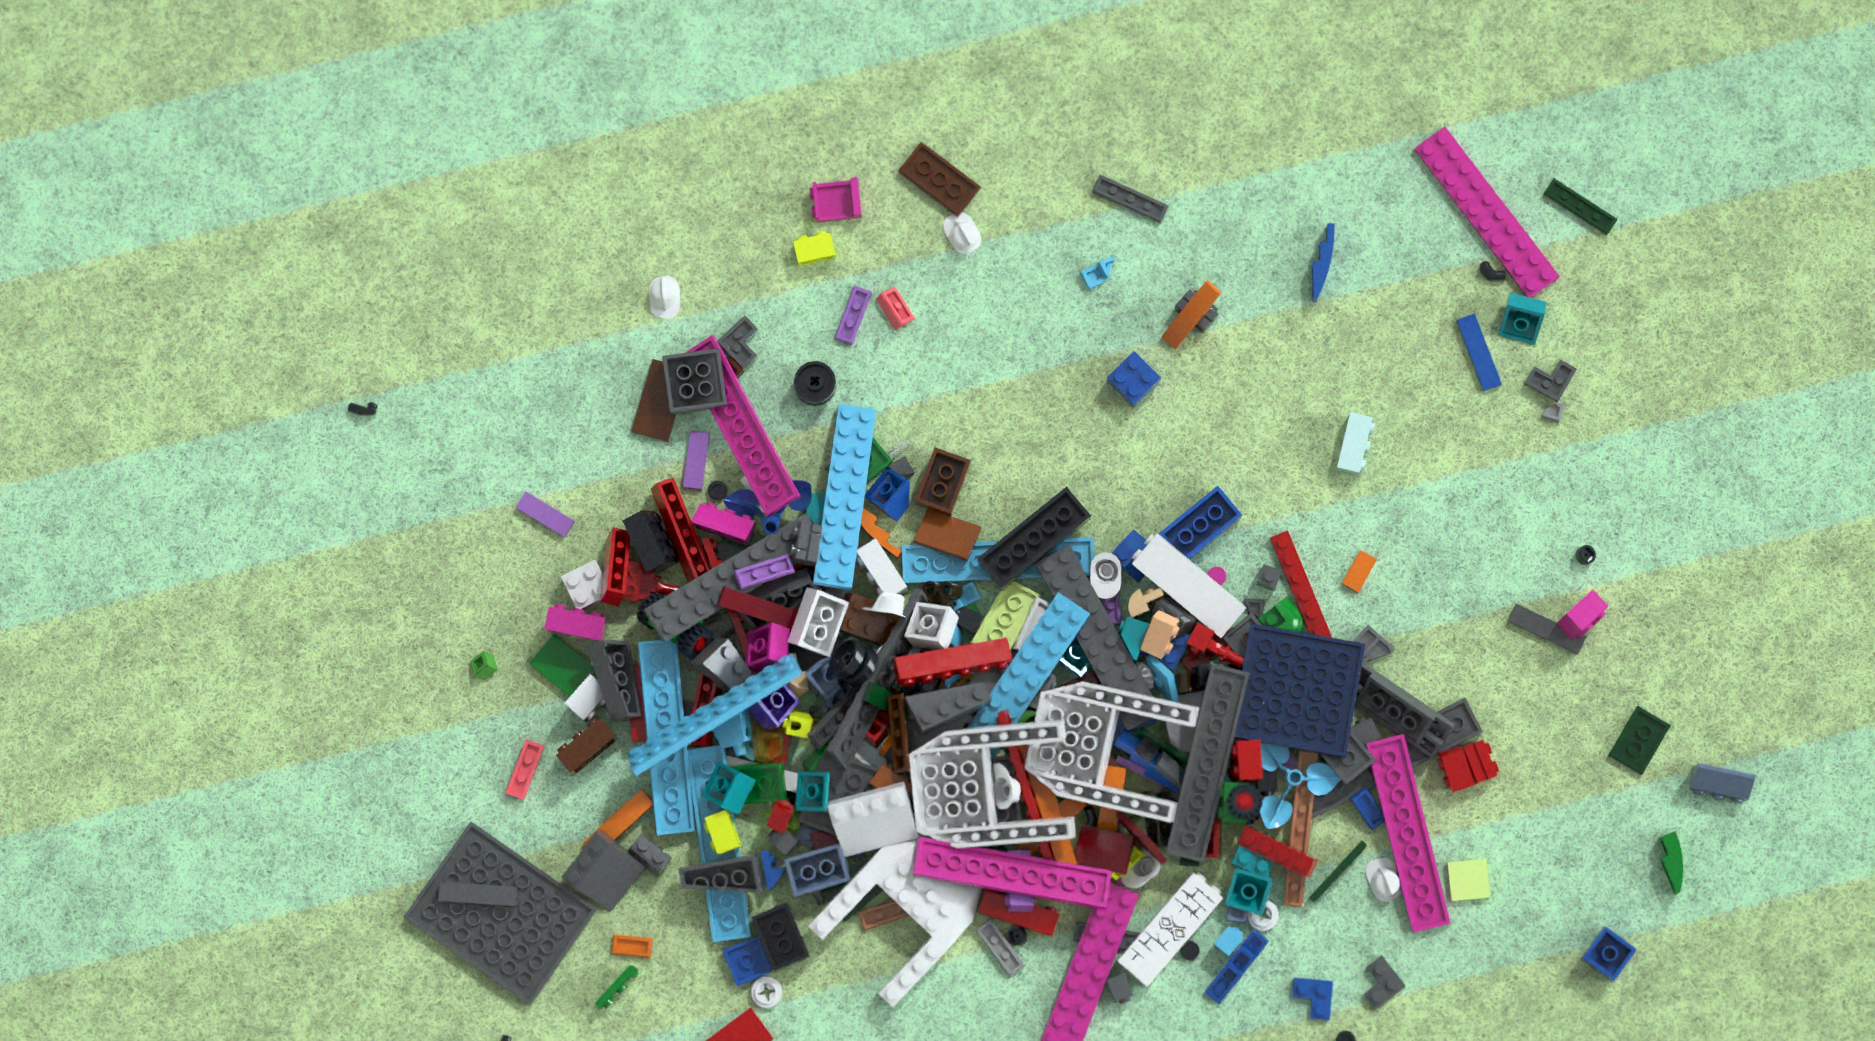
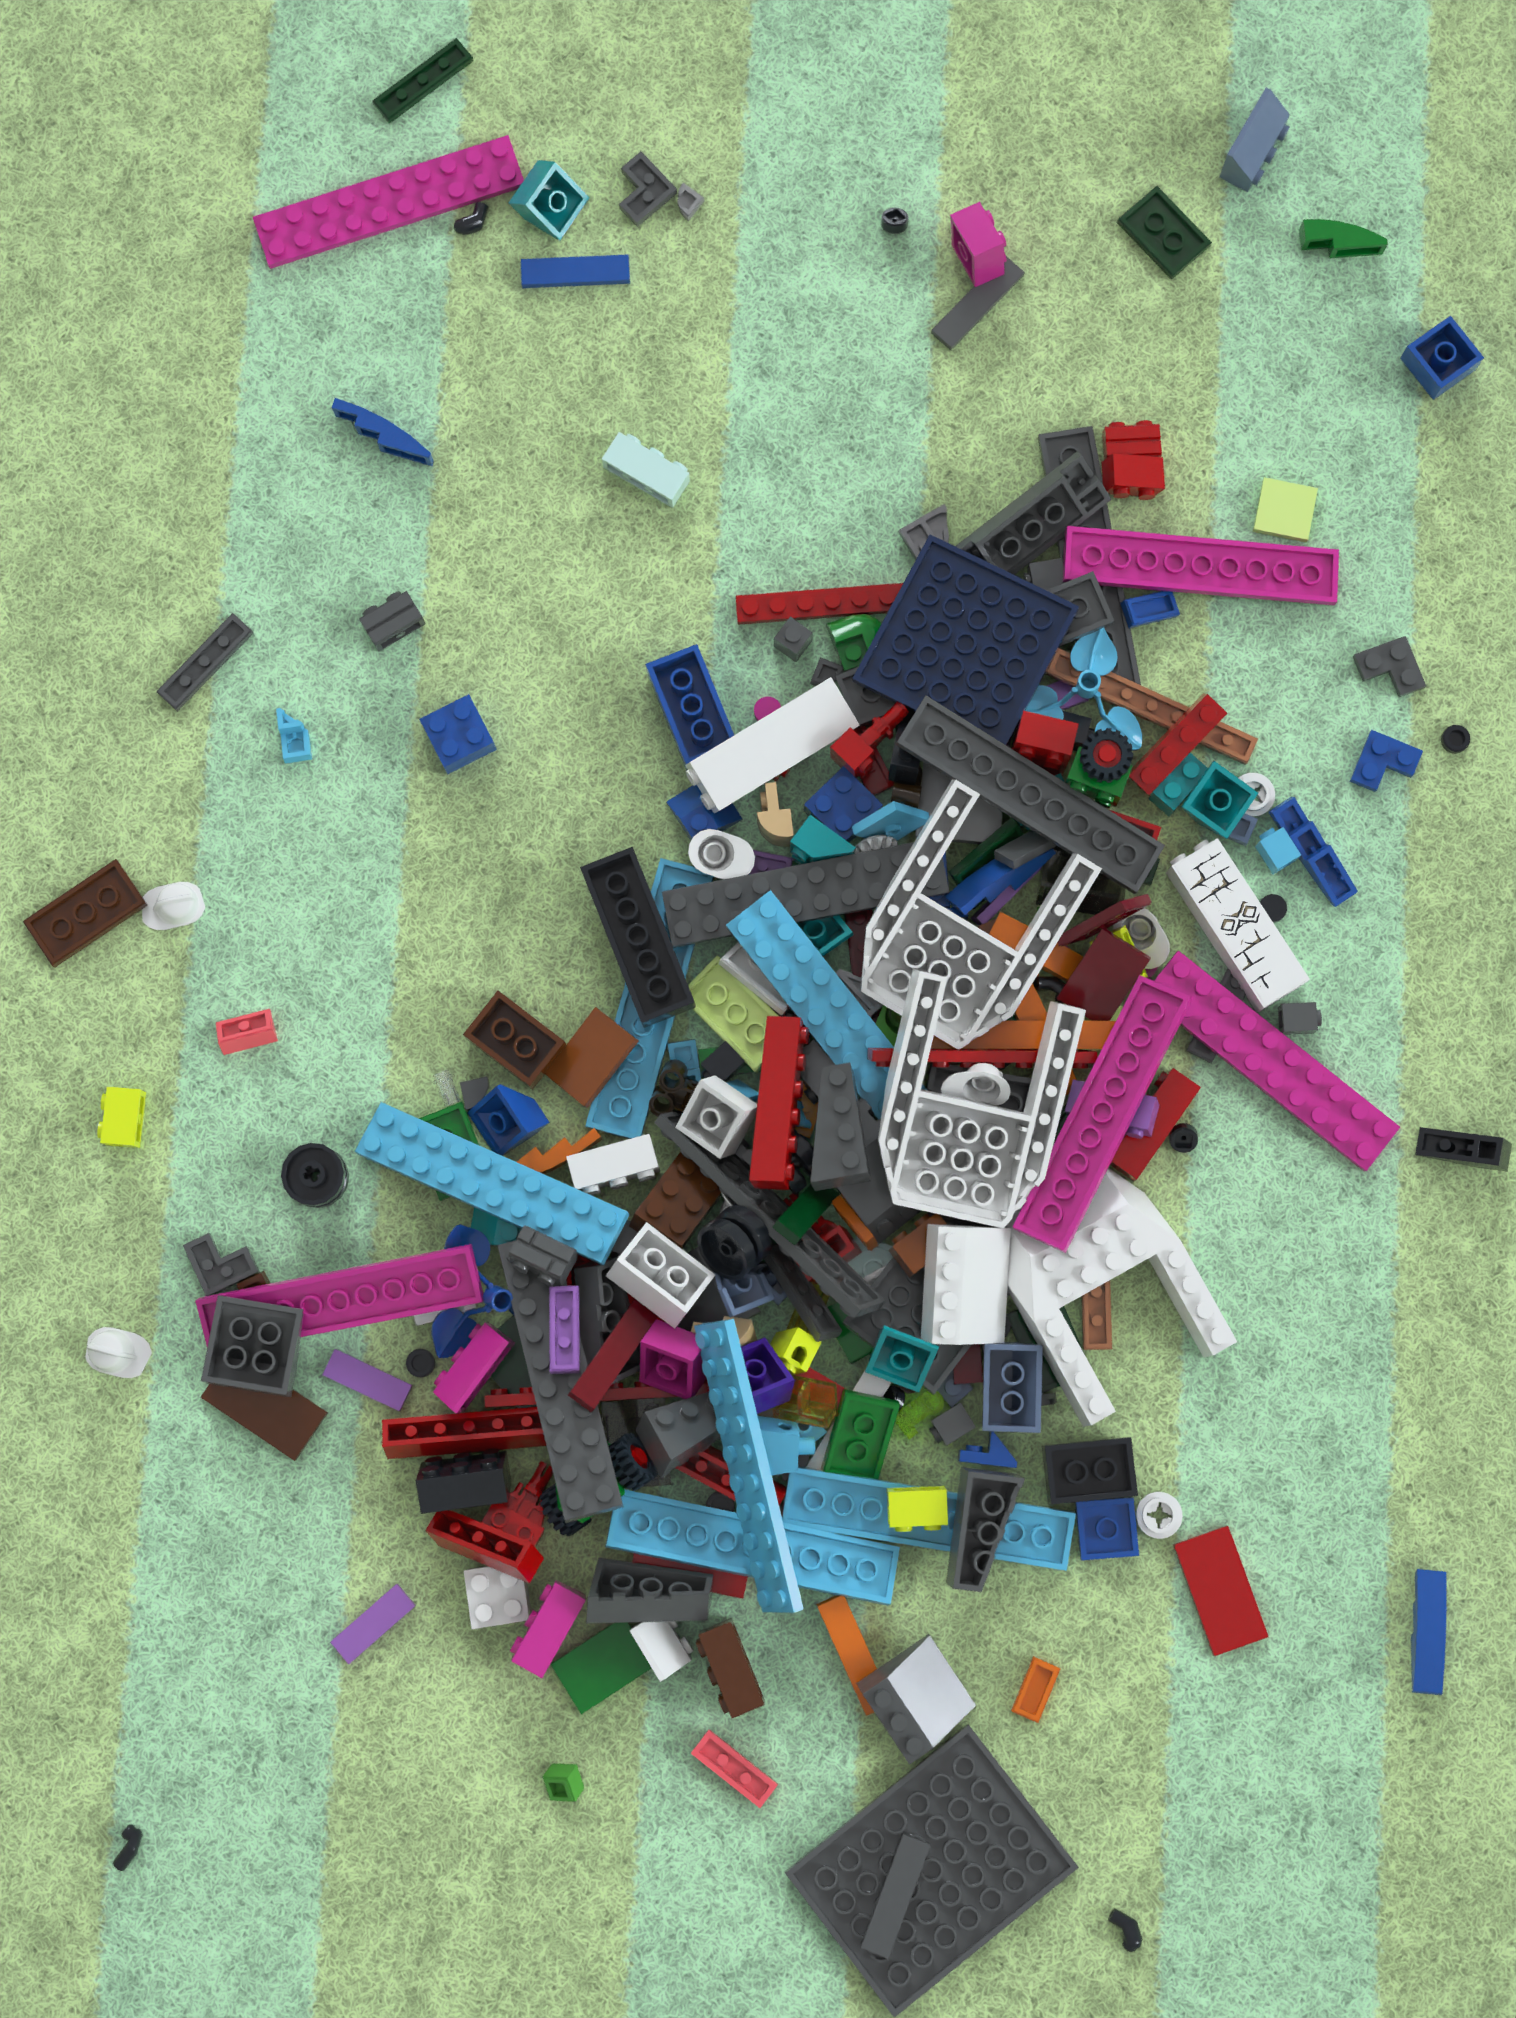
camera: 75 degrees left, 0 degrees up
(617, 986) = (1089, 1729): green plate -> none
(650, 855) = (915, 1623): dark grey brick -> none
(728, 788) = (856, 1479): teal slope -> none
(780, 816) = (920, 1416): red brick -> none
(820, 710) = (781, 1316): dark grey tile -> none
(836, 200) = (64, 1065): dark pink panel -> none
(853, 315) = (236, 1093): medium lavender tile -> none
(889, 603) = (667, 1165): white piece -> none
(898, 733) = (857, 1209): reddish brown slope -> none
(1000, 947) = (1191, 1166): light grey tile -> none
(1147, 749) = (984, 872): clear smoke tile -> none
(1160, 634) = (831, 803): light nougat brick -> none
(1173, 608) = (807, 779): dark grey brick -> none
(1191, 314) = (395, 624): orange slope -> none
(1338, 871) = (1224, 675): dark green tile -> none
(1359, 571) = (822, 520): orange tile -> none
(1383, 879) = (1250, 620): white piece -> none

